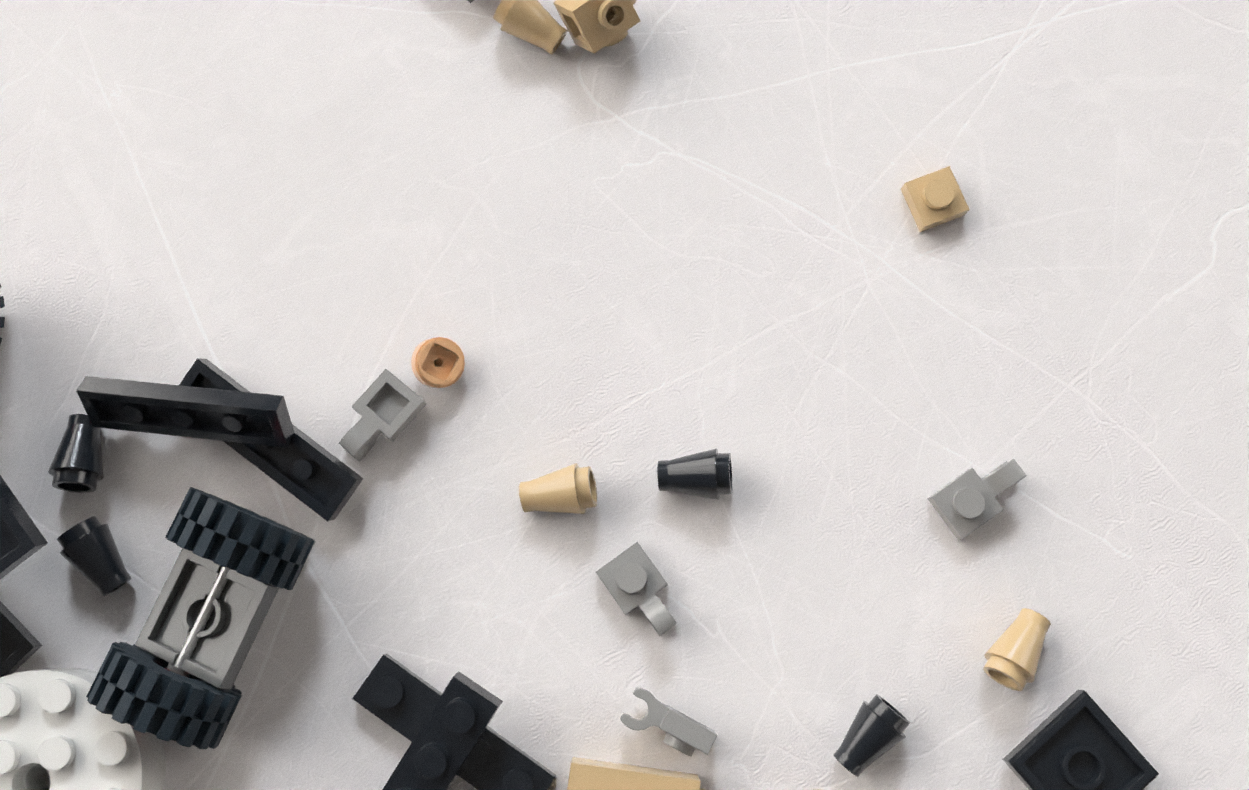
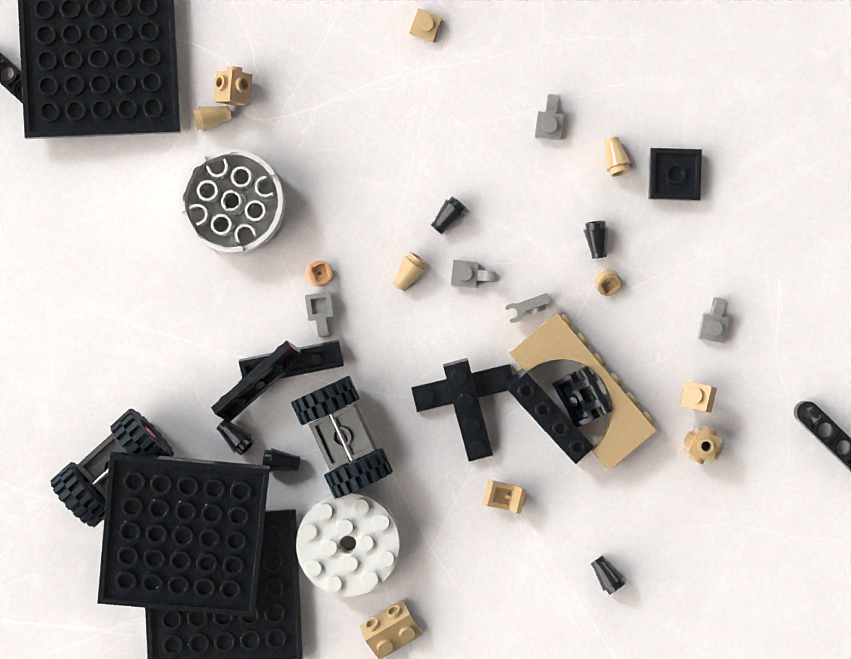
camera: 40 degrees left, 10 degrees up
(421, 98) = (236, 228): none -> white brick

